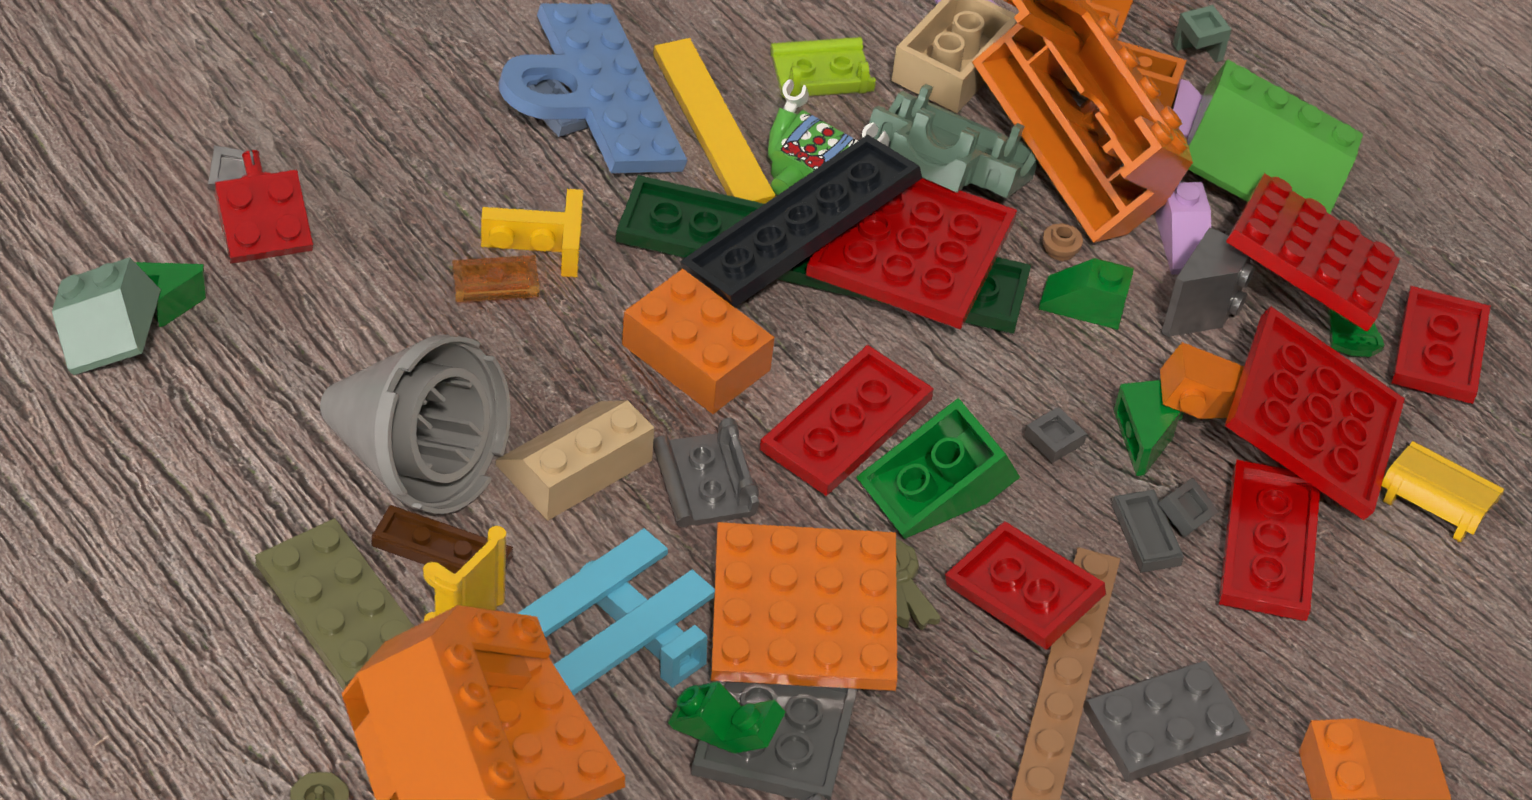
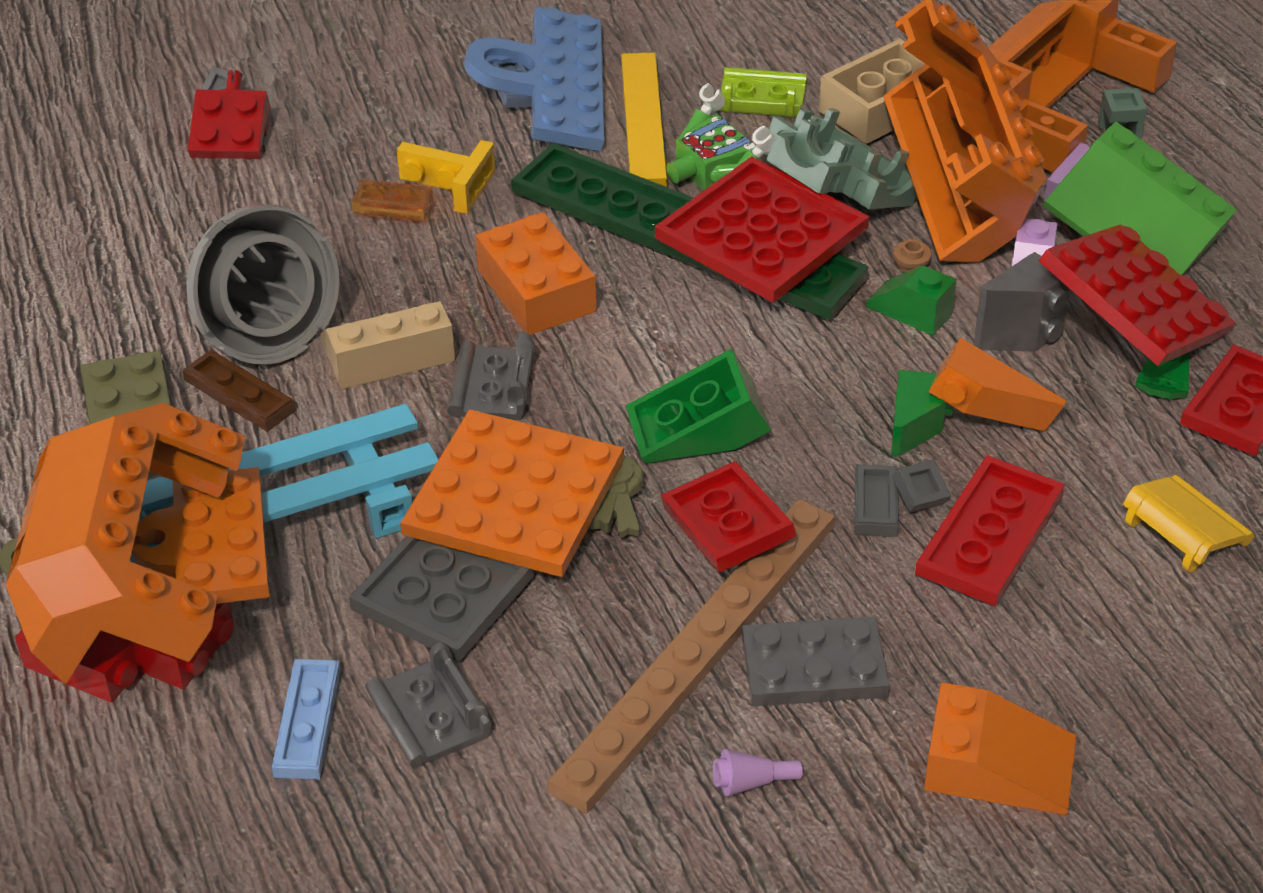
camera: 25 degrees right, 5 degrees down
(104, 314) = (56, 166): sand green slope -> none
(180, 287) = (121, 161): green slope -> none
(477, 583) = (233, 404): yellow piece -> none
(718, 719) = (388, 563): green slope -> none
(801, 220) = (665, 191): black plate -> none
(846, 420) = (636, 357): red plate -> none
(1055, 434) = (824, 404): flat silver plate -> none
(1316, 413) = (1076, 426): red plate -> none

